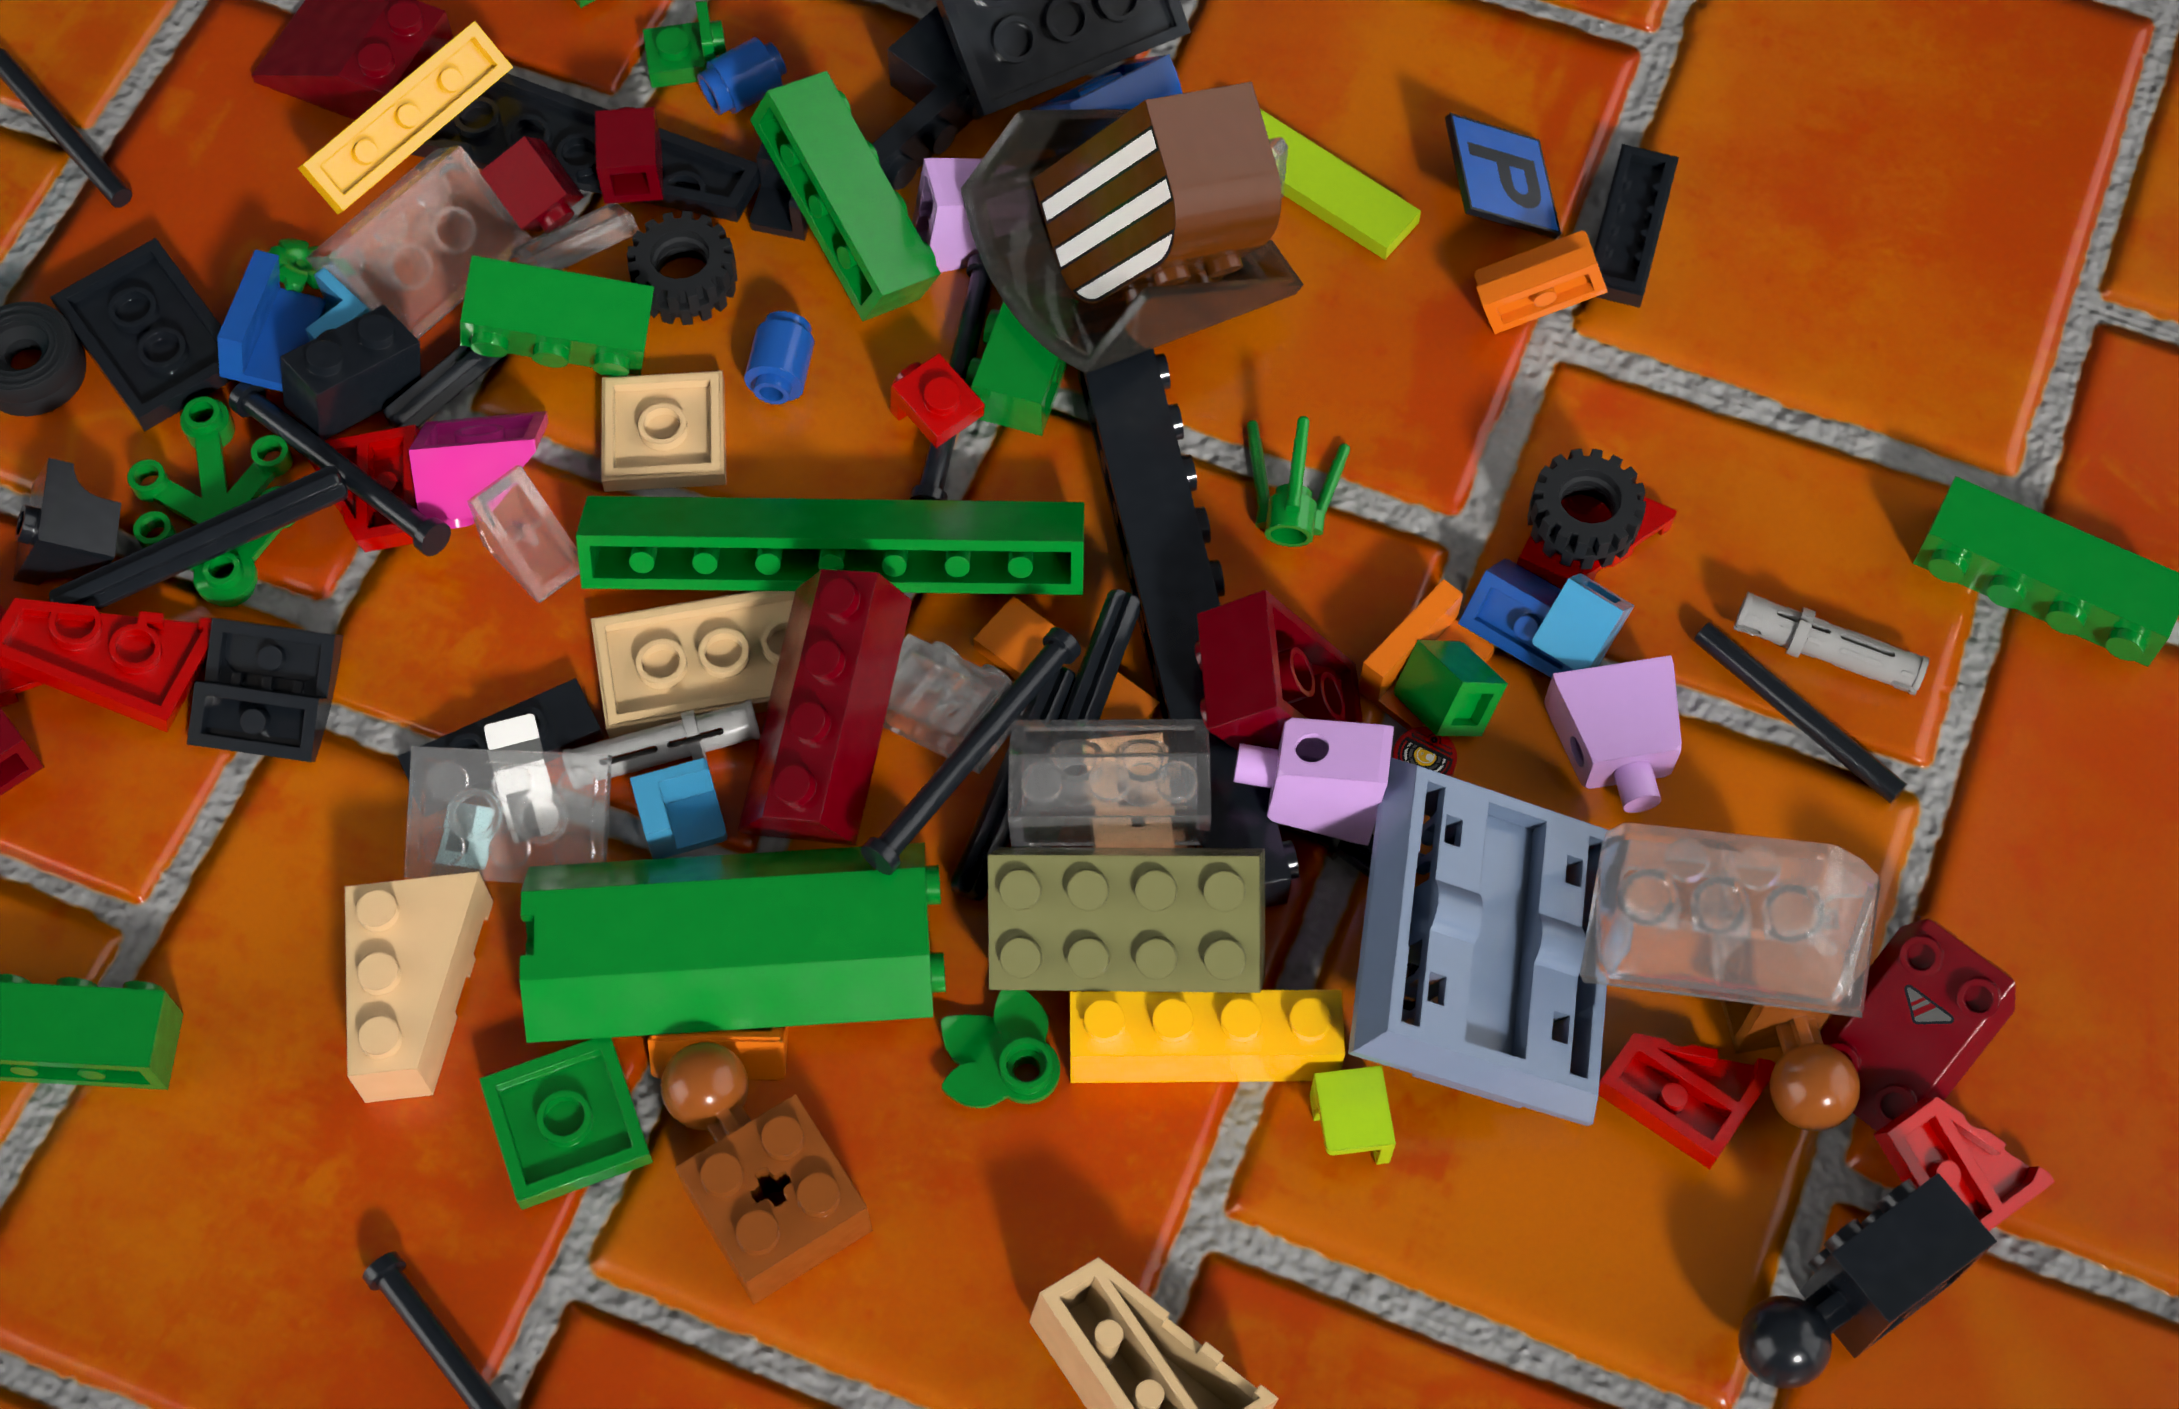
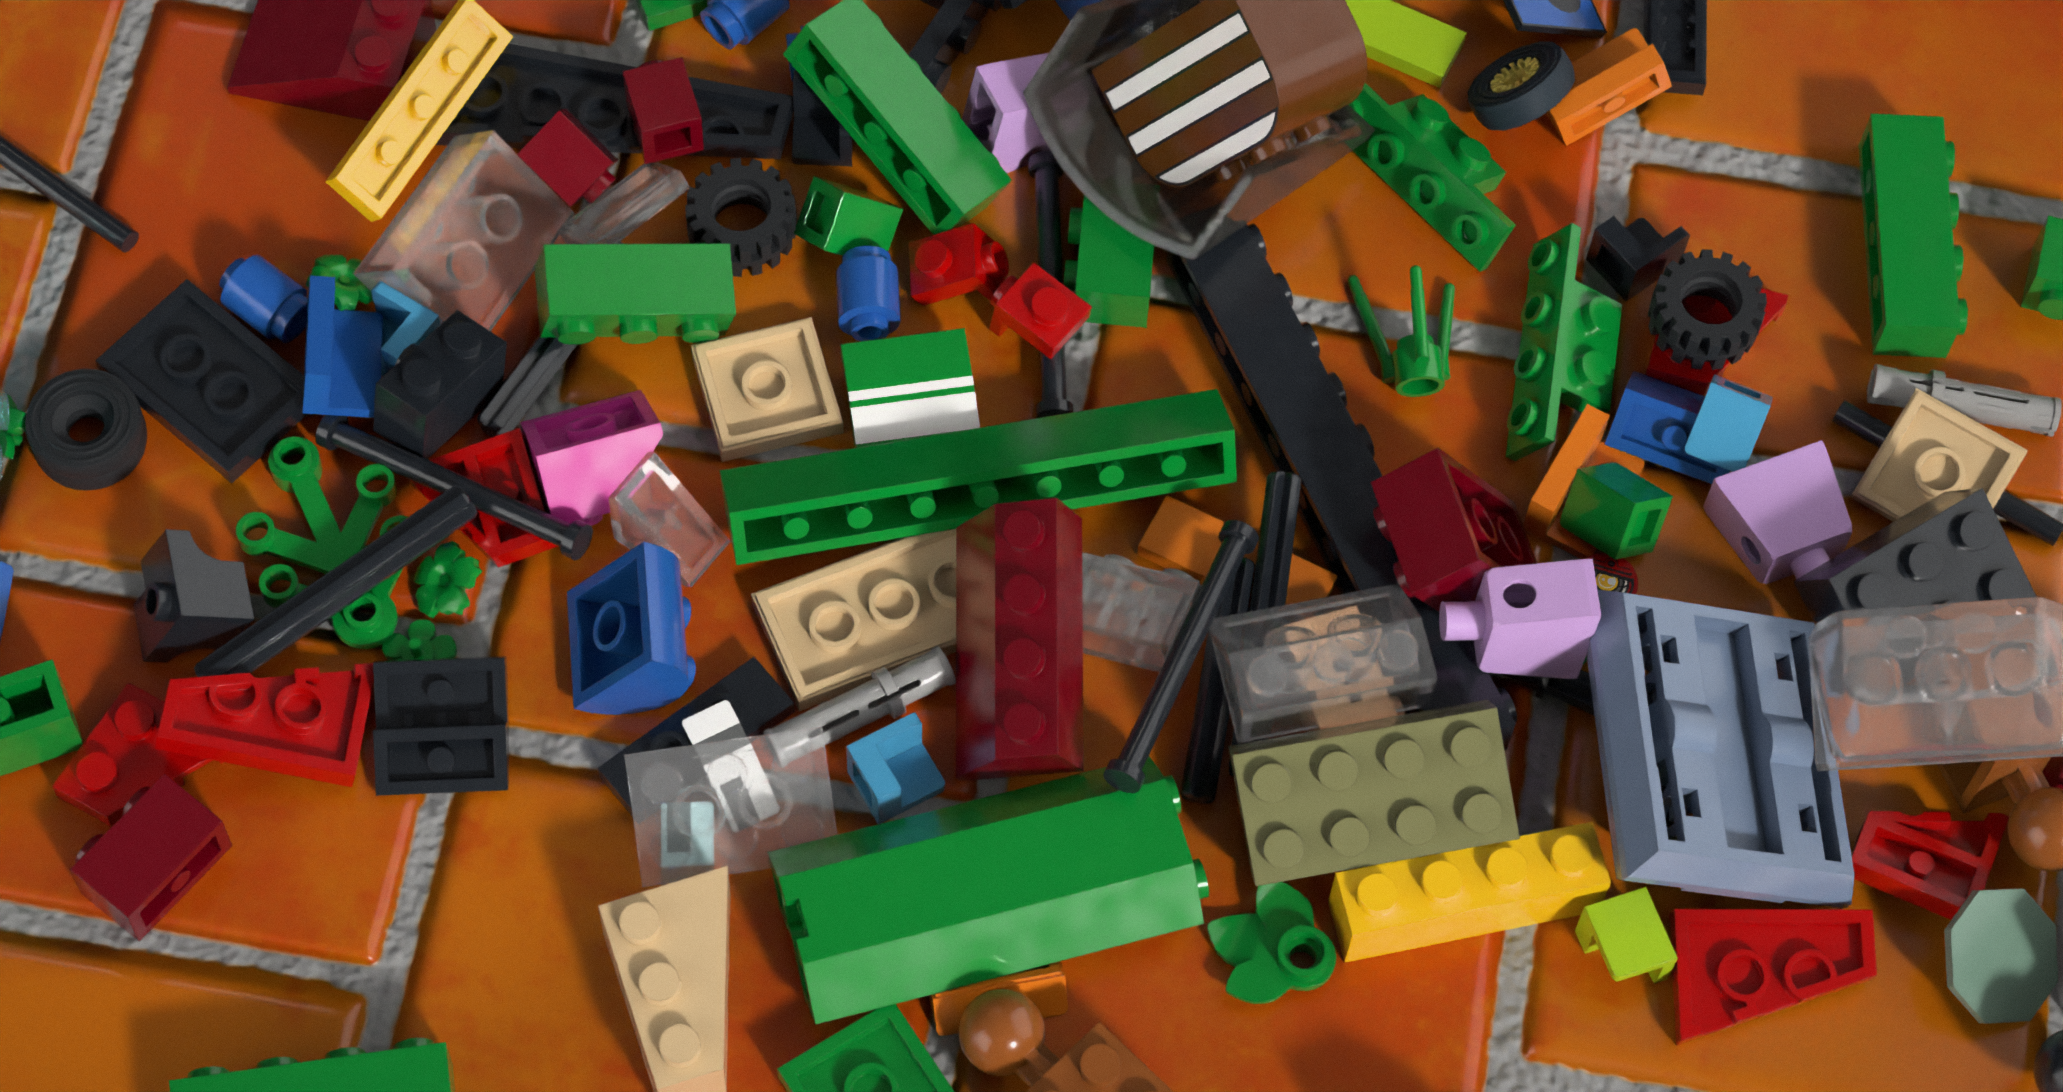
camera: 15 degrees left, 0 degrees up
(216, 262) = (265, 298): none -> blue brick
(273, 611) = (422, 643): none -> green plant
(309, 555) = (445, 580): none -> green plant
(463, 635) = (630, 634): none -> blue brick
(779, 282) = (846, 218): none -> green panel
(794, 449) = (909, 387): none -> slope
(871, 344) = (956, 264): none -> red bracket
(1353, 330) = (1436, 171): none -> green bracket
(1442, 522) = (1564, 345): none -> green bracket
(1458, 267) = (1521, 86): none -> black bush
(1489, 1164) = (1762, 962): none -> red wing
(1528, 446) = (1634, 254): none -> black panel
(1735, 1206) = (2001, 955): none -> sand green piece
(1756, 788) = (1930, 556): none -> black brick
(1787, 711) = (1934, 453): none -> tan tile
(1813, 475) = (1910, 236): none -> green brick

